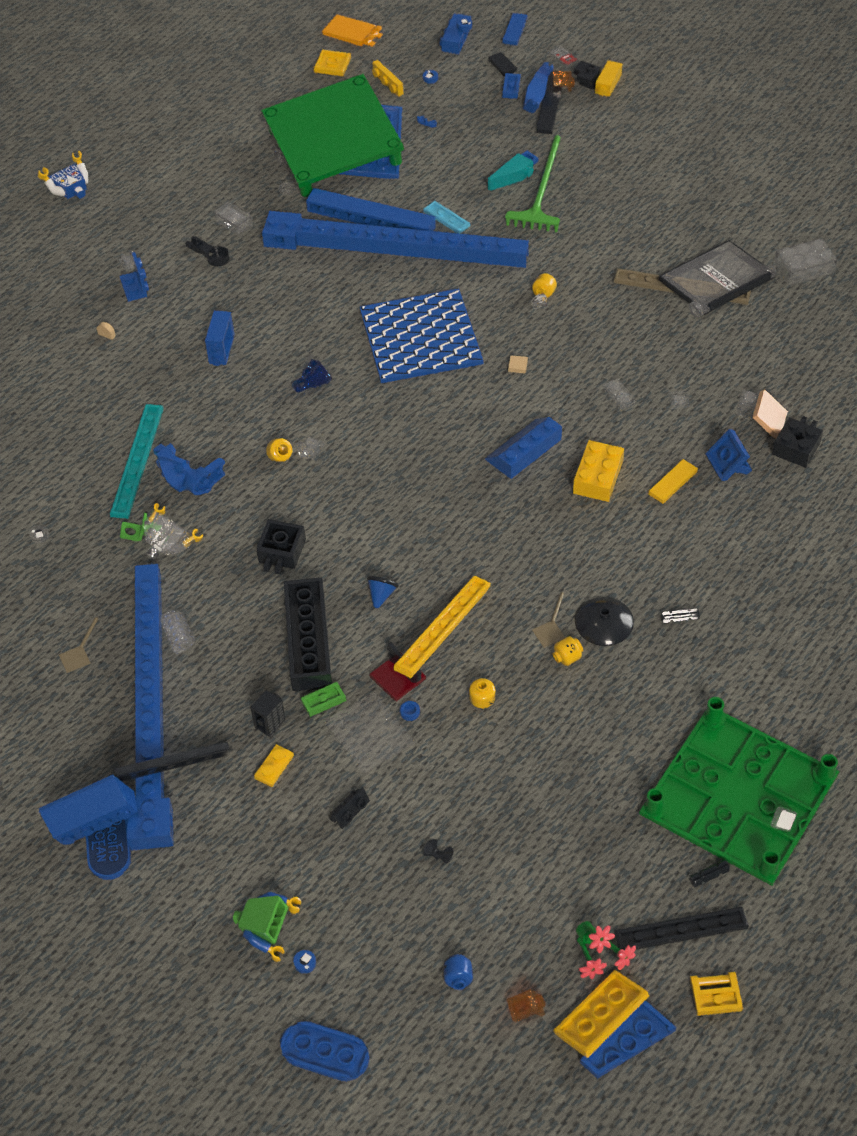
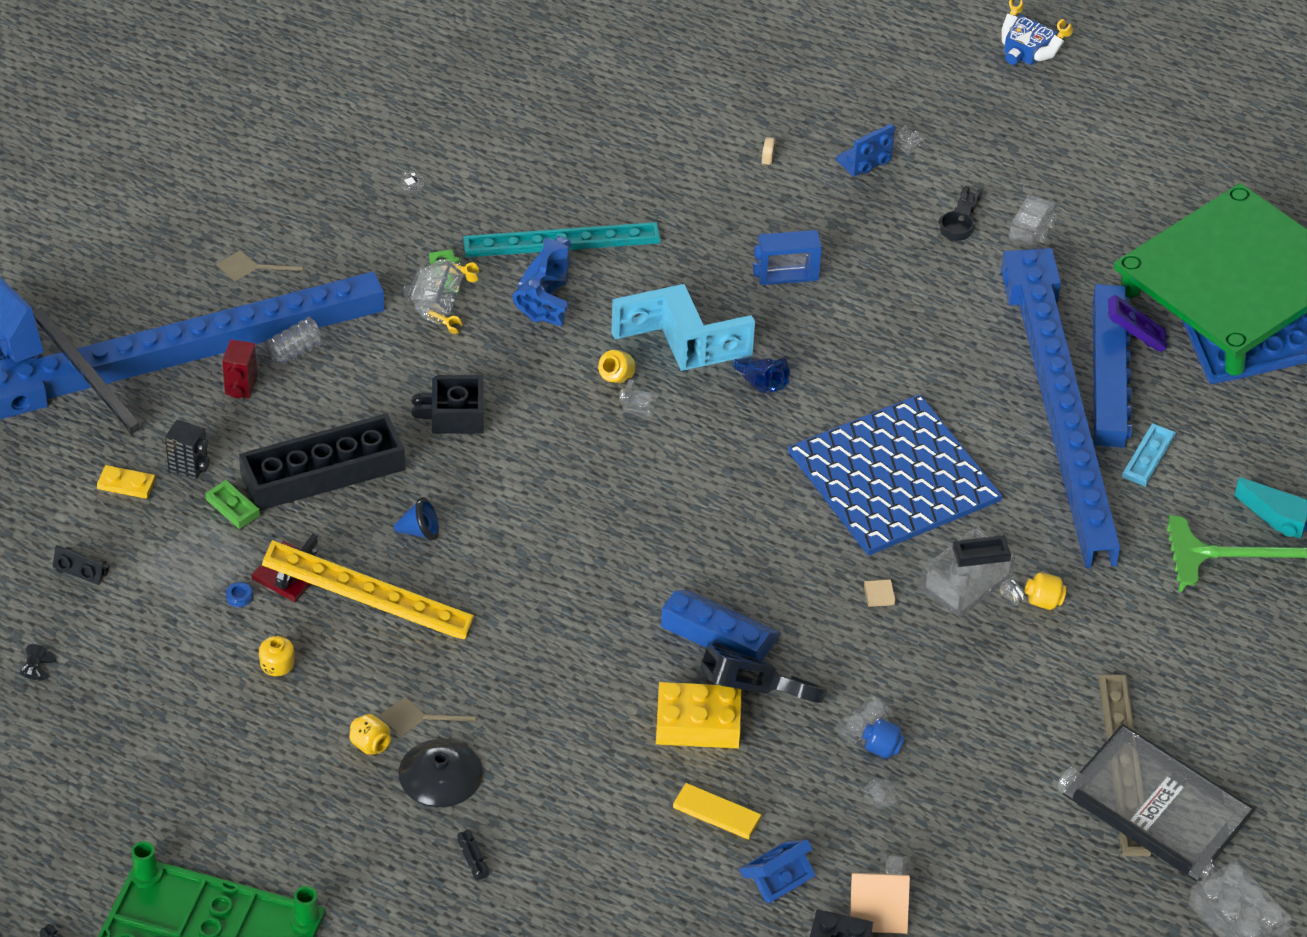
camera: 70 degrees right, 5 degrees down
(198, 666) = (239, 369): none -> dark red brick
(259, 405) = (676, 315): none -> medium azure bracket
(348, 190) = (1137, 323): none -> dark purple plate
(517, 299) = (981, 551): none -> black tile
(521, 315) = (966, 586): none -> clear brick
(580, 435) = (722, 668): none -> black piece
(639, 386) = (883, 738): none -> blue head

